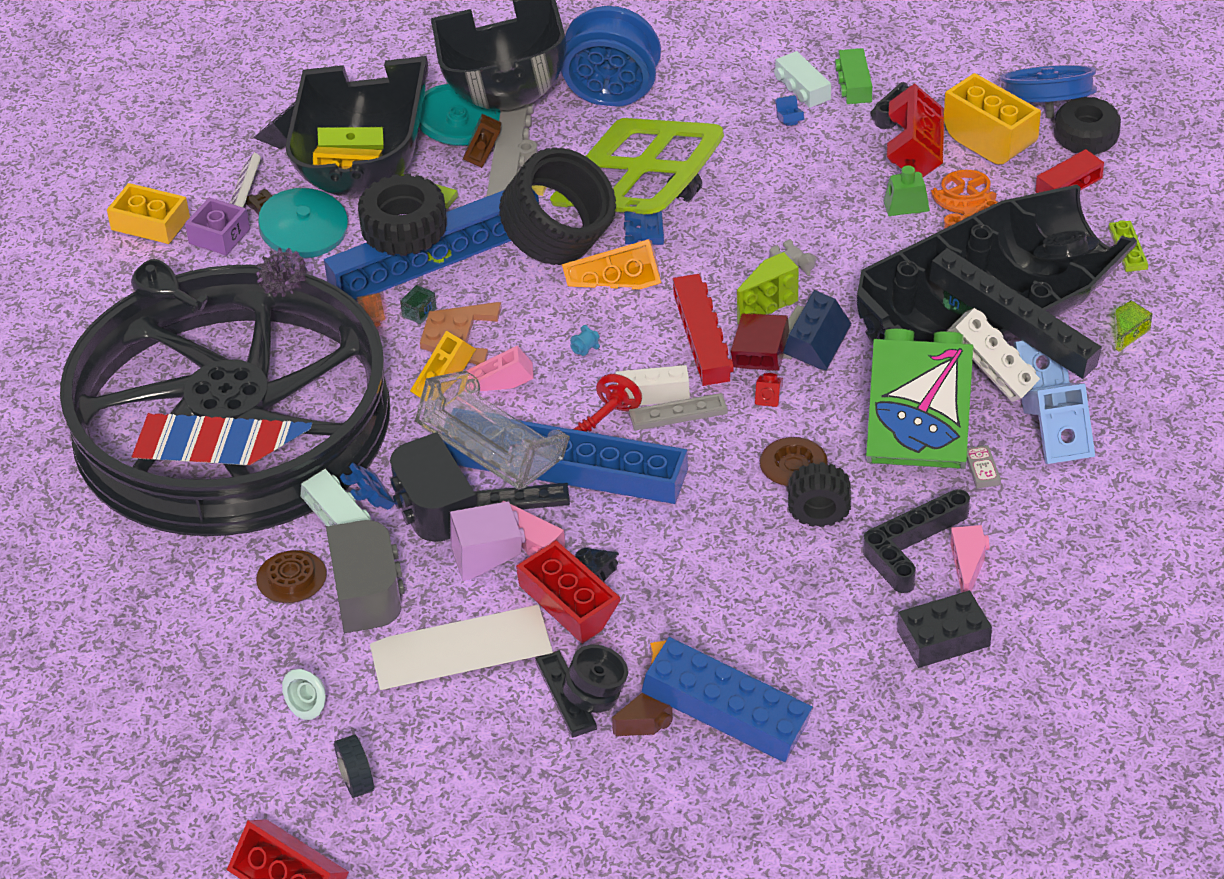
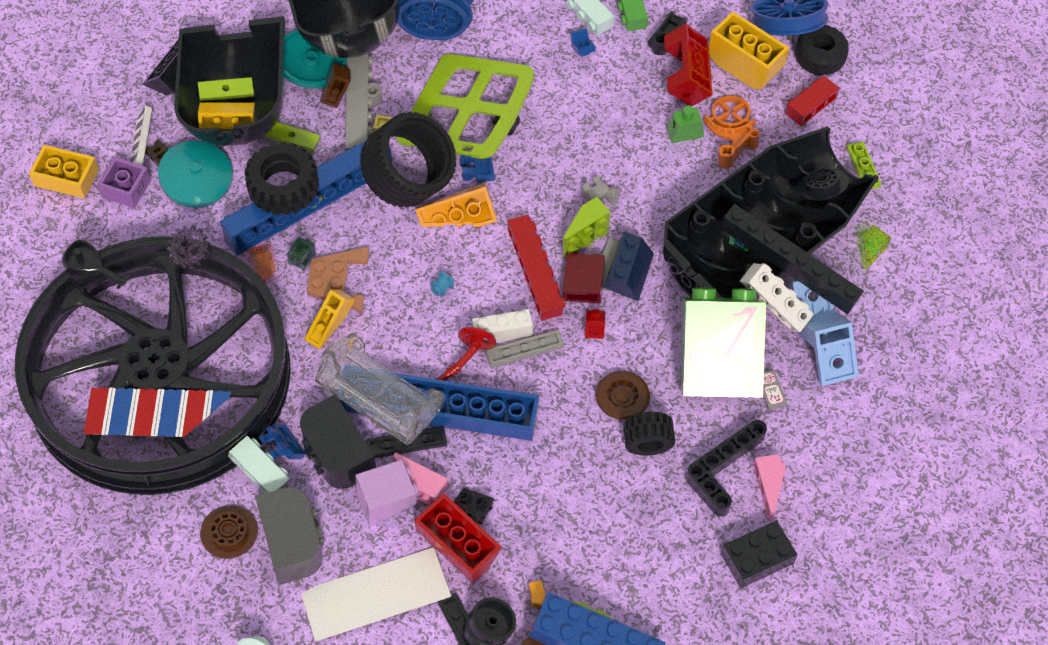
camera: 10 degrees left, 15 degrees up
(504, 370) = (375, 320): bright pink slope -> none

